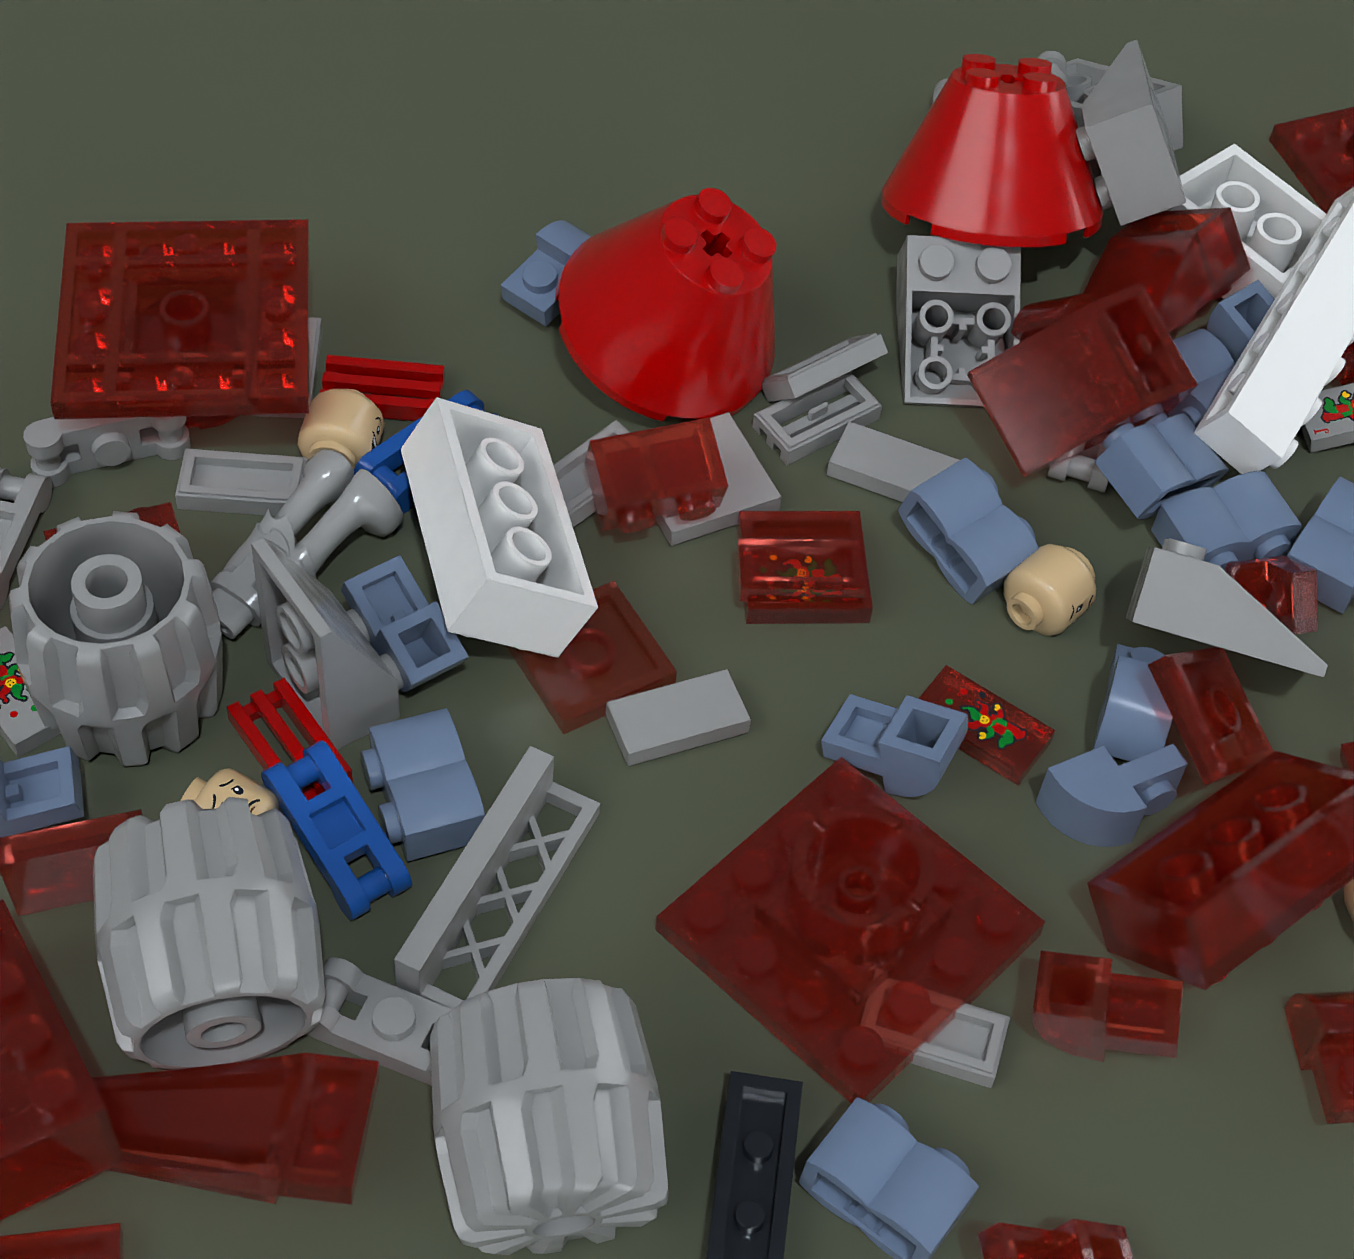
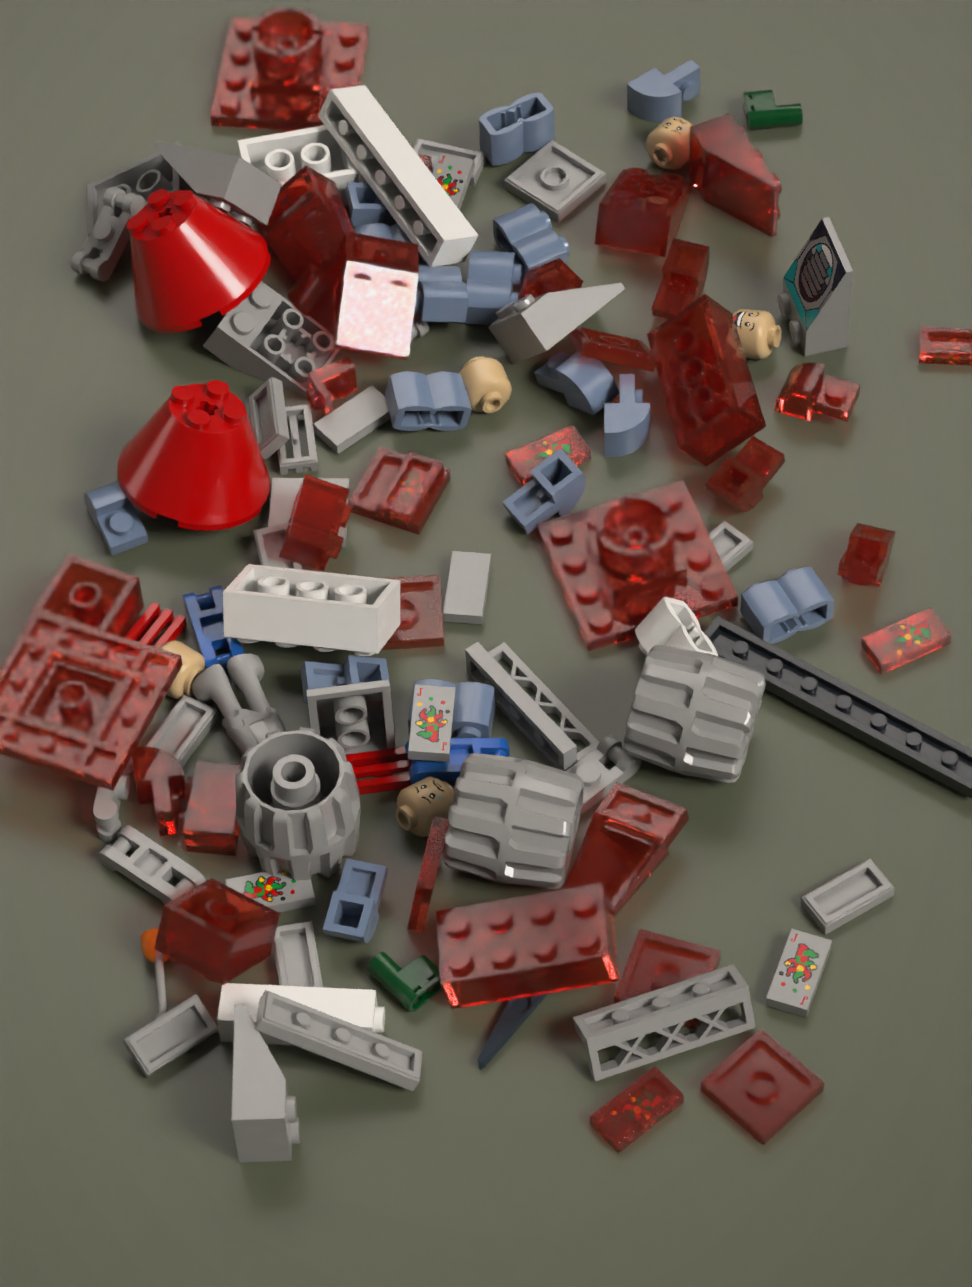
camera: 55 degrees left, 0 degrees up
(137, 475) = (161, 782): none -> clear red brick
(358, 752) = (431, 723): none -> light grey tile
(380, 294) = (93, 596): none -> clear red brick
(710, 1035) = (673, 625): none -> white brick
(926, 411) = (331, 383): none -> clear red bracket

